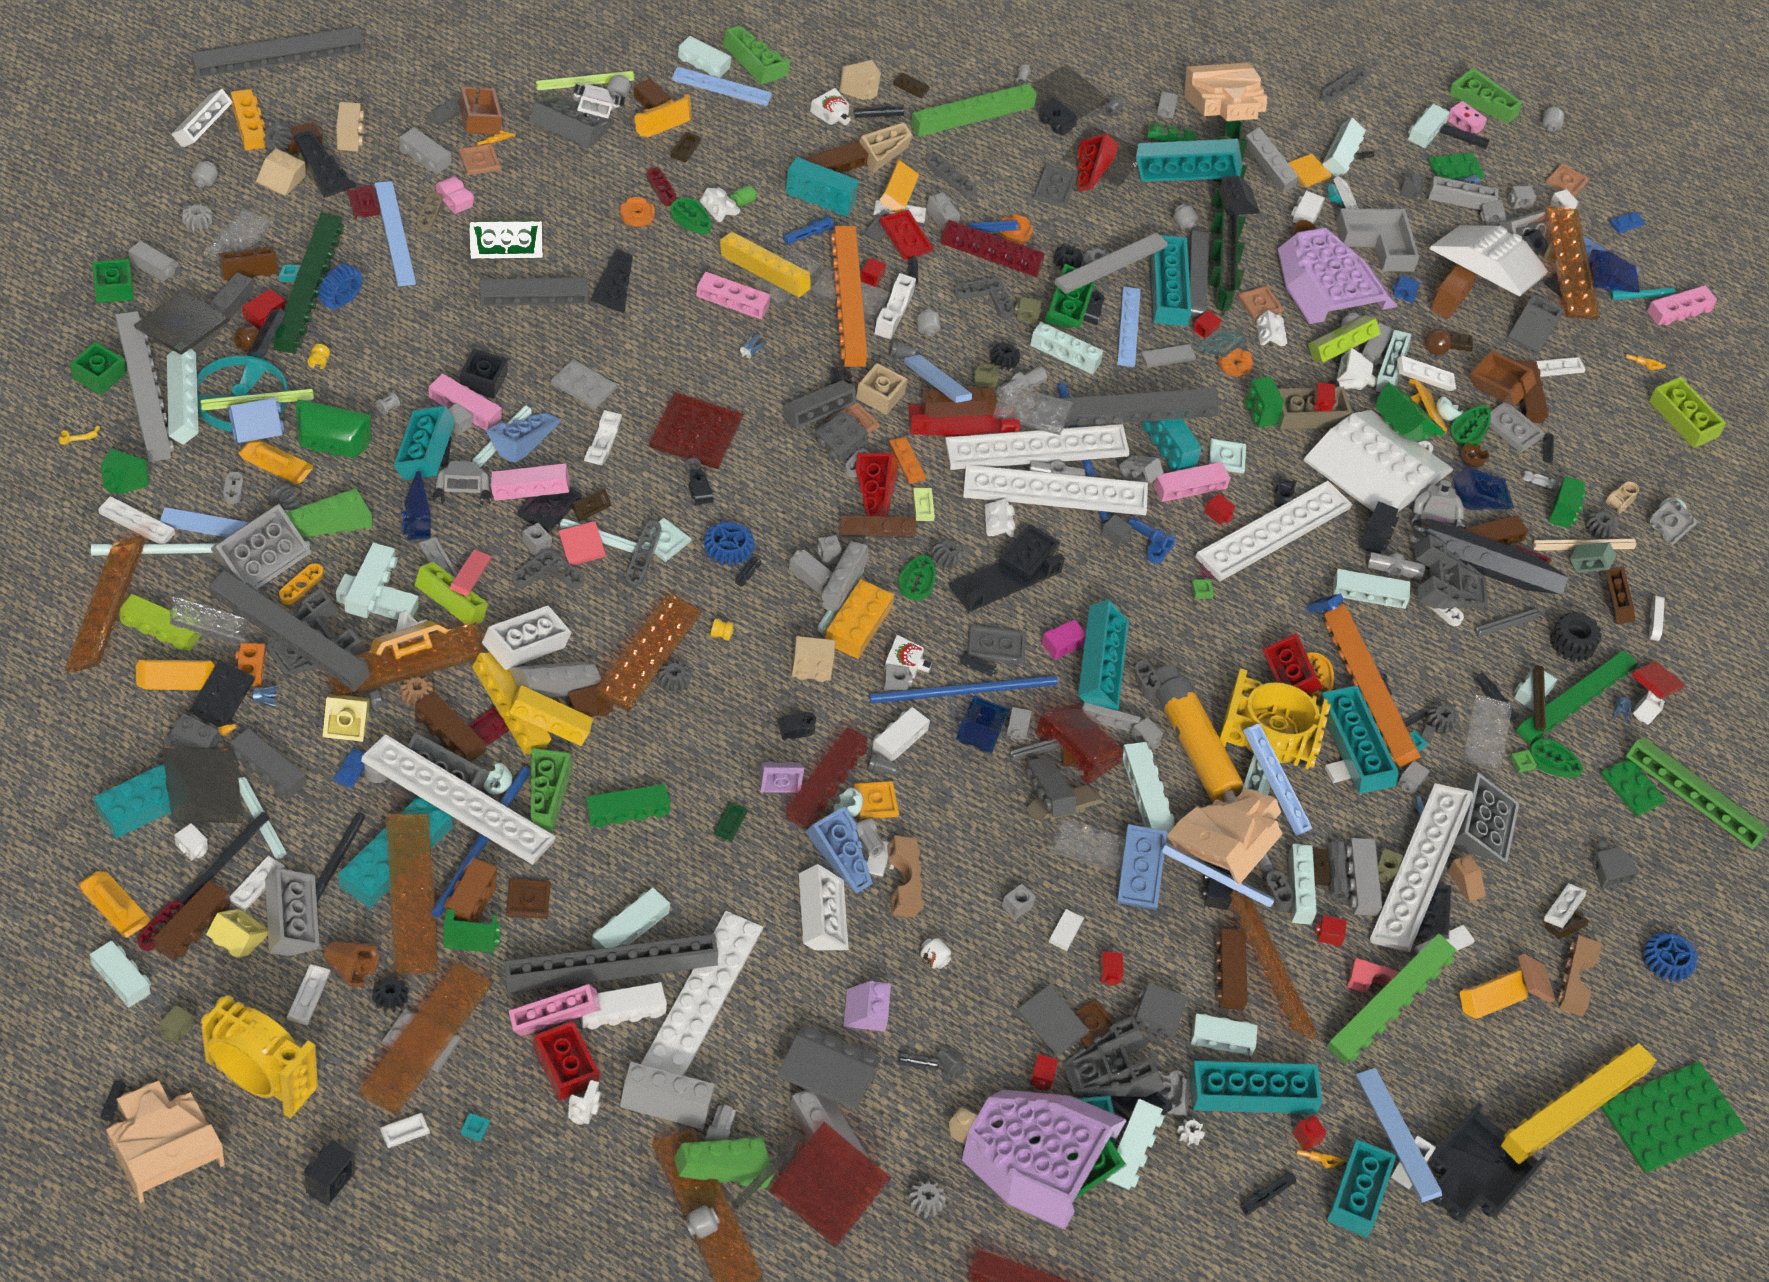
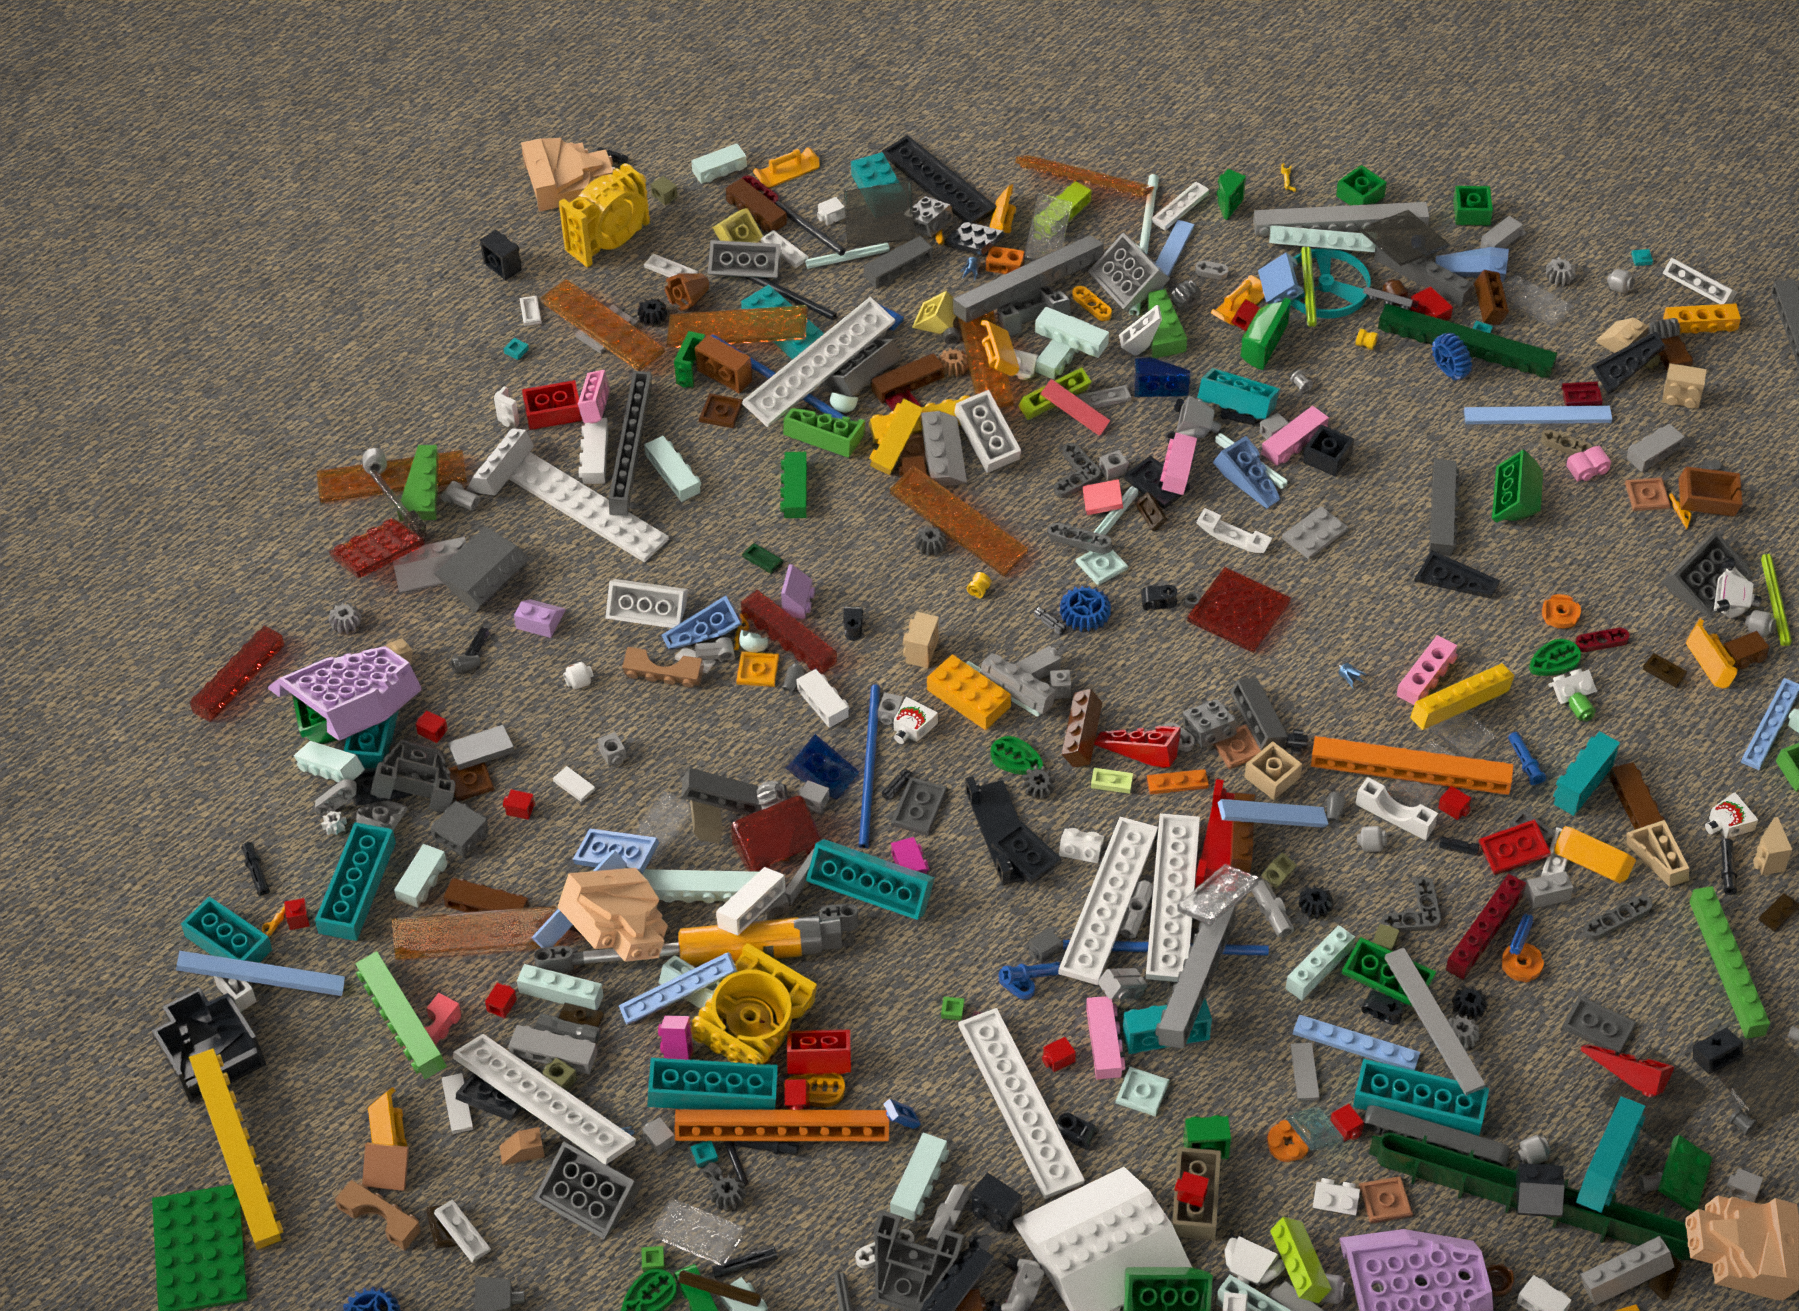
camera: 115 degrees right, 0 degrees up
(120, 747) = (939, 180): none -> black plate
(163, 163) = (1642, 257): none -> teal plate
(196, 271) = (1473, 262): none -> medium blue wedge
(303, 449) = (1245, 315): none -> red brick
(357, 519) = (1140, 334): none -> white slope
(1041, 747) = (770, 794): none -> light grey gear
(1170, 1129) = (344, 790): none -> light grey beam
(1172, 733) = (751, 901): none -> white brick
(1324, 774) = (676, 1037): none -> dark pink brick
(1338, 677) = (797, 1094): none -> red brick

